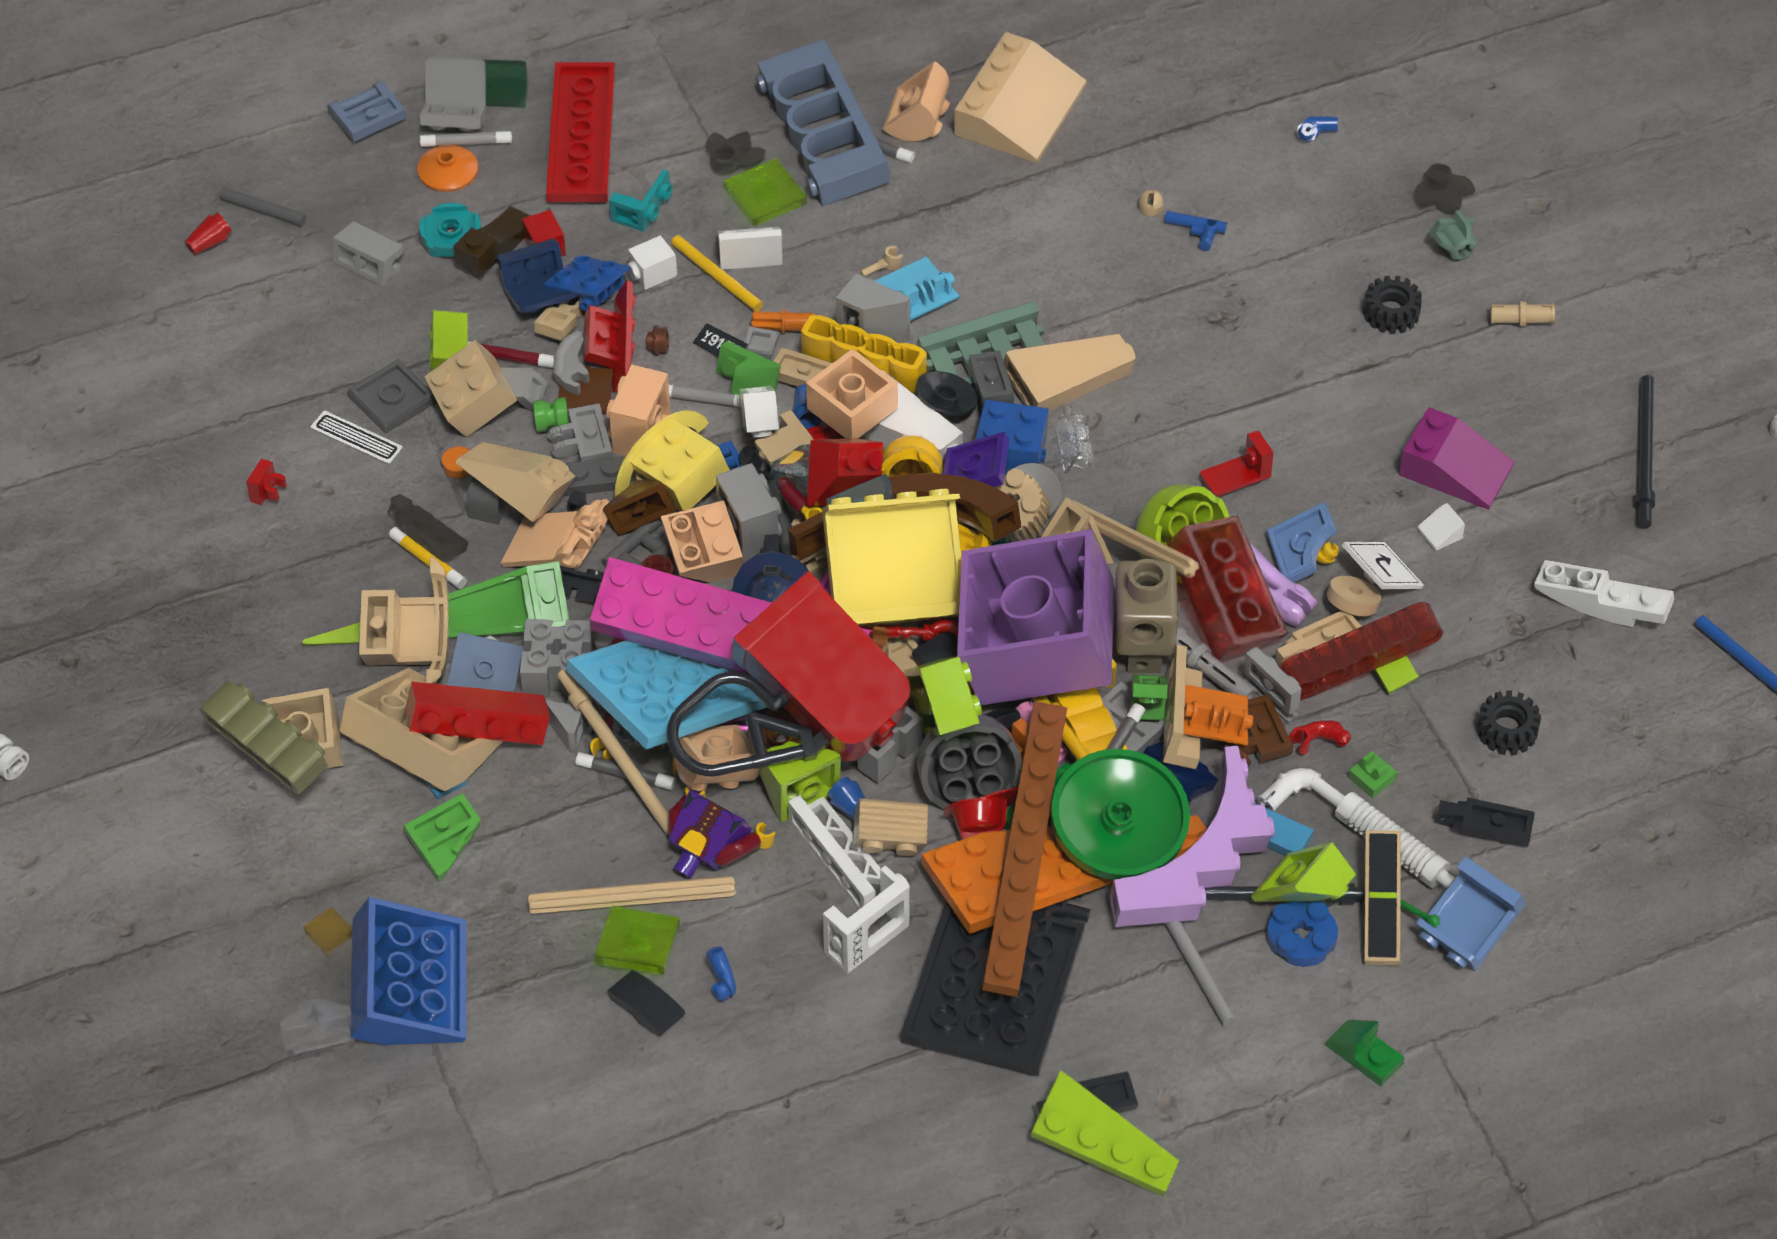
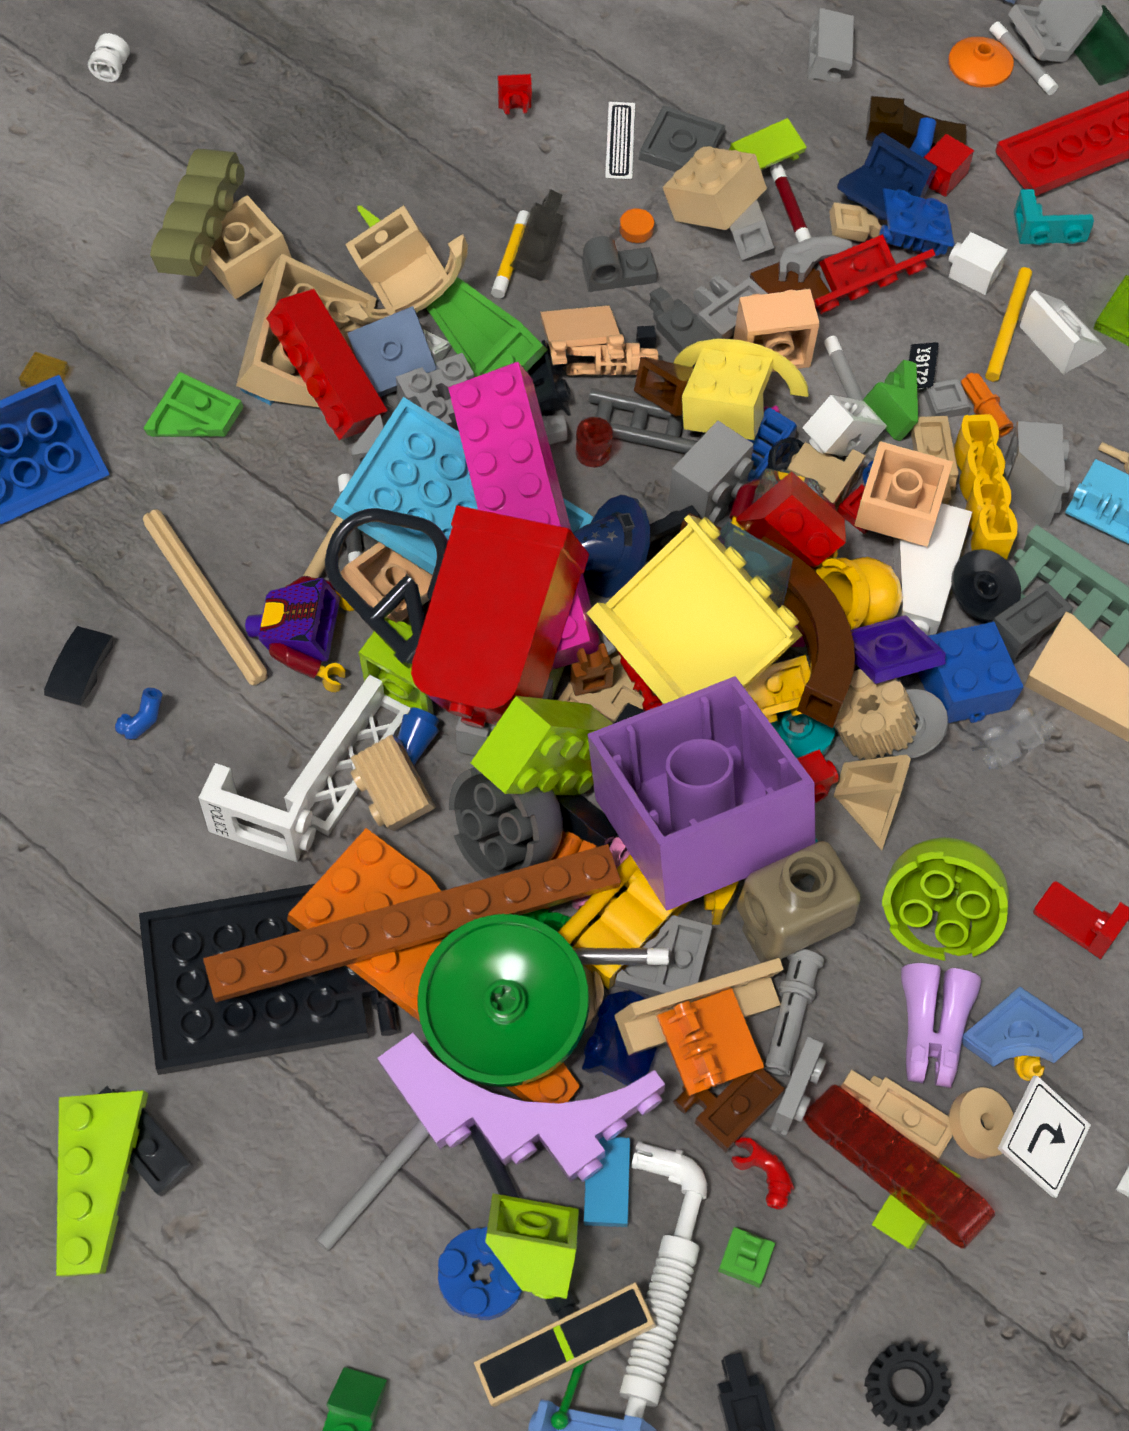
camera: 60 degrees right, 10 degrees up
(435, 225) = (917, 83): teal plate -> none
(516, 236) = (924, 138): none -> blue arm
(521, 478) = (626, 268): tan slope -> none
(550, 414) = (733, 265): bright green wheel -> none
(637, 940) = (148, 624): clear neon green plate -> none
(658, 340) = (888, 312): copper plate -> none
(703, 542) = (643, 455): light nougat slope -> none
(981, 813) = (447, 864): red piece -> none
(1142, 543) = (893, 849): tan axle -> none
(1150, 693) = (702, 956): bright green slope -> none
(1228, 588) = (893, 976): clear red slope -> none

